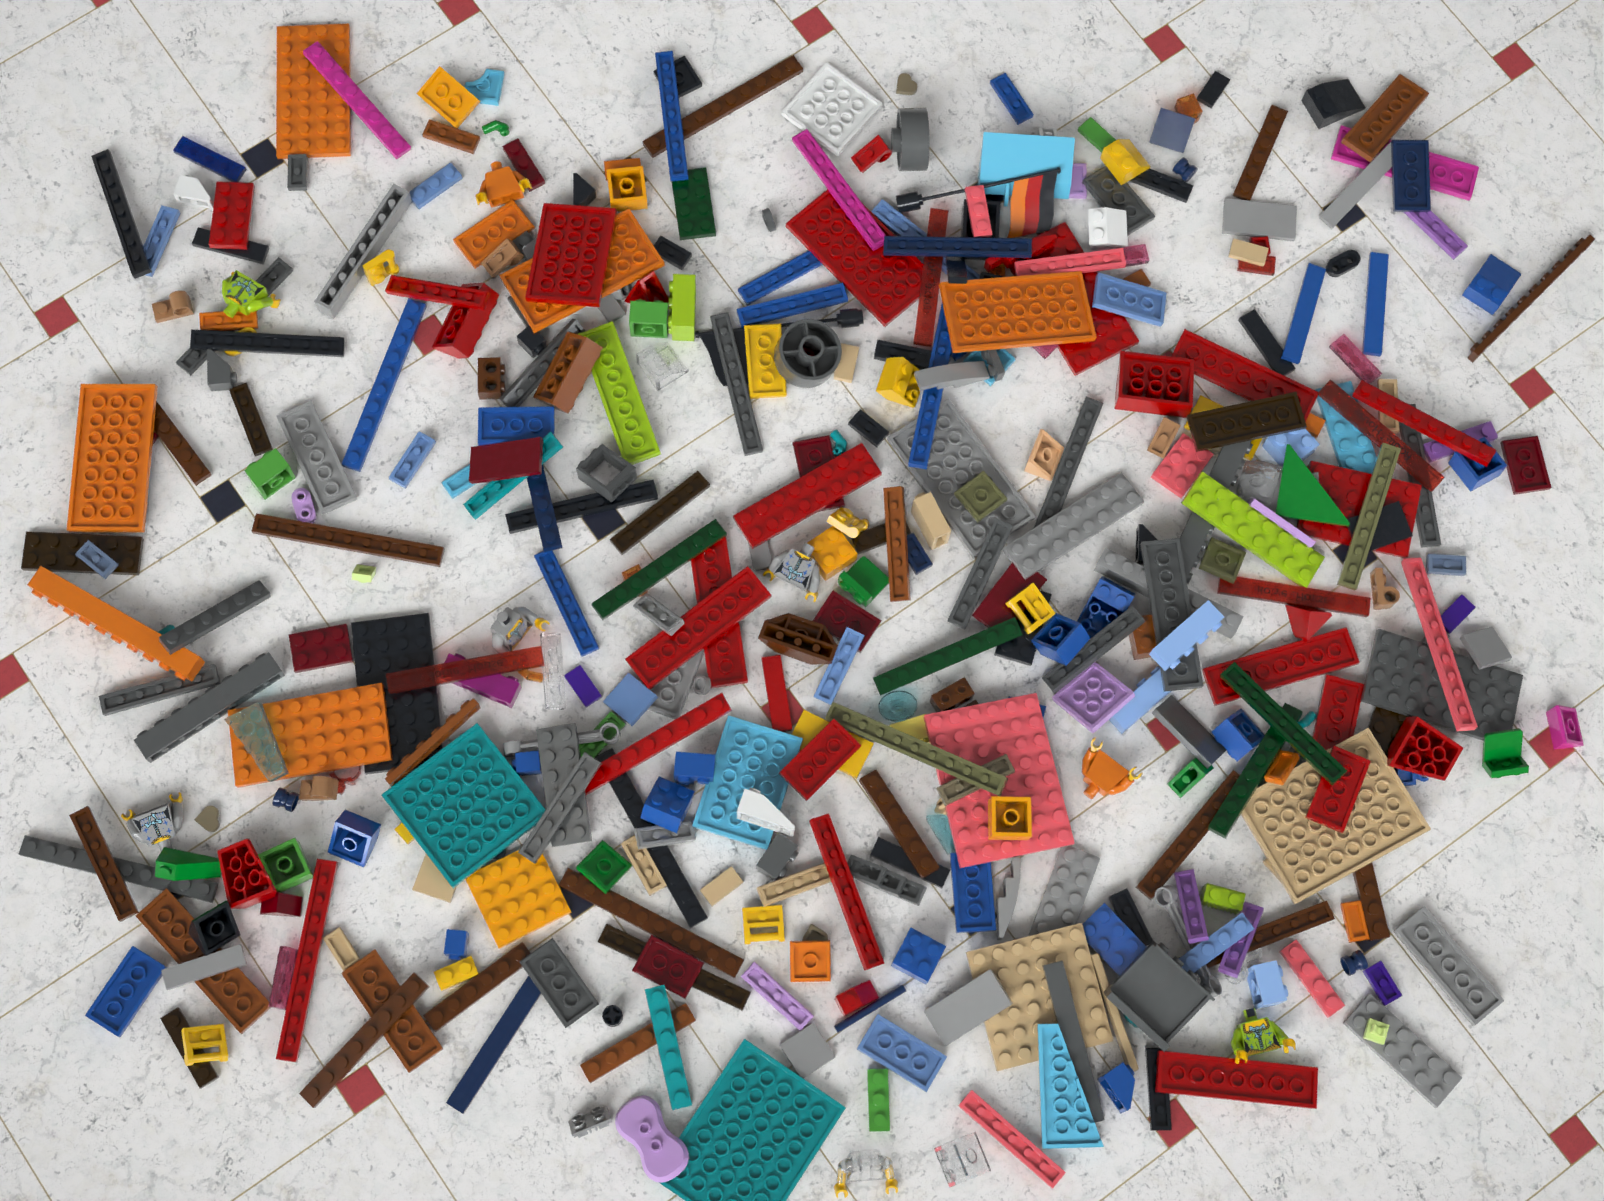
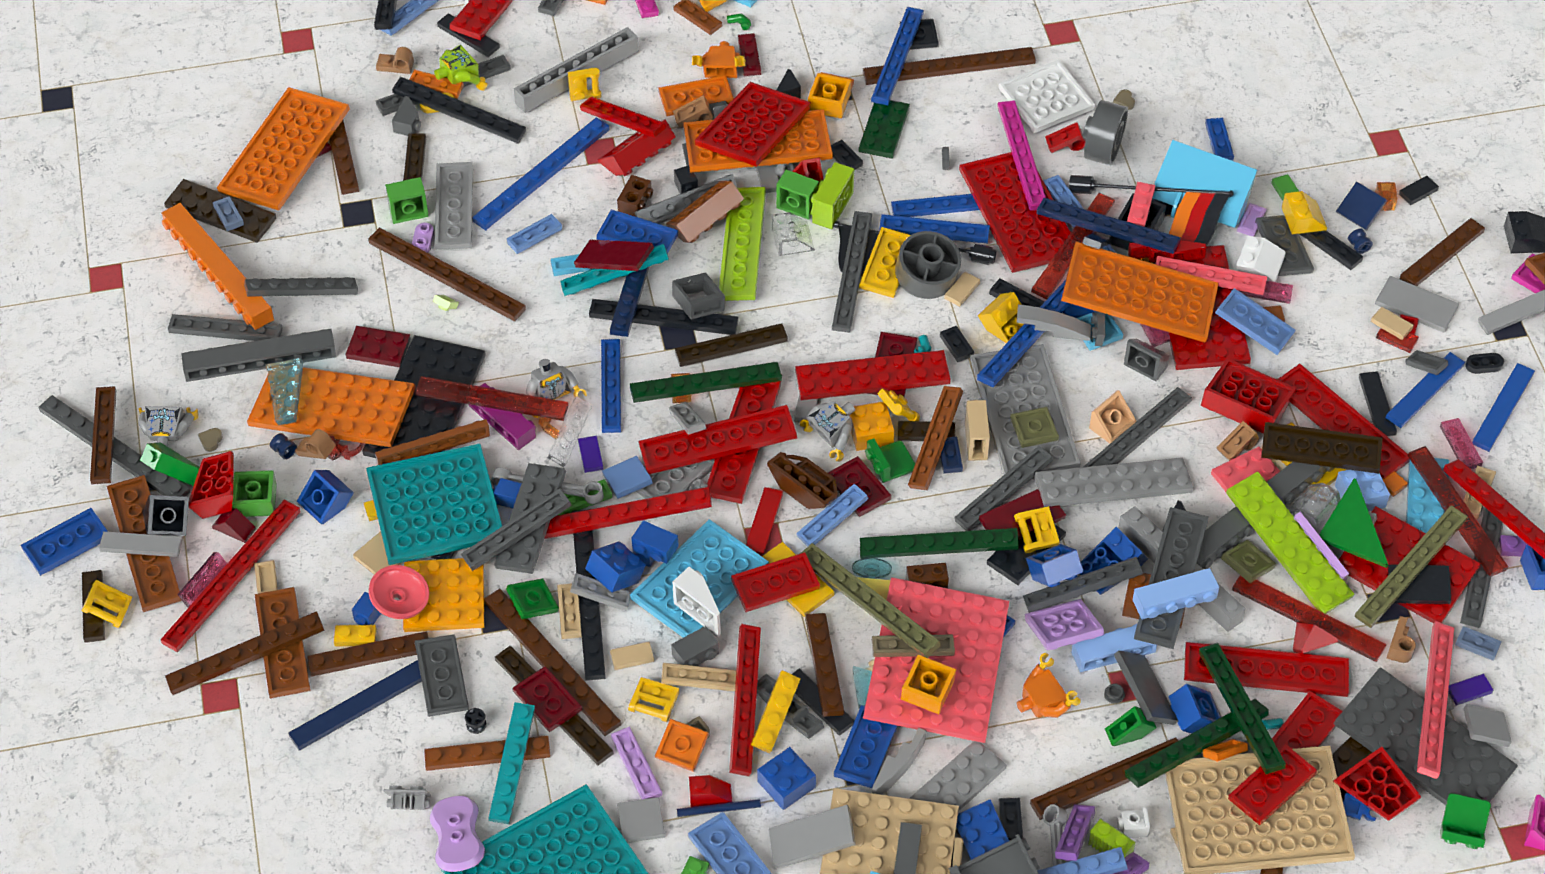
camera: 30 degrees right, 20 degrees down
(435, 185) = (664, 46): medium blue plate -> none
(488, 908) = (399, 583): none -> coral dish
(881, 895) = (775, 711): none -> yellow plate
(1048, 378) = (1145, 359): none -> dark grey slope
(1162, 745) = (1114, 693): none -> dark grey plate
(1239, 866) = (1134, 823): none -> white brick
(1294, 283) = (1426, 362): none -> dark grey tile

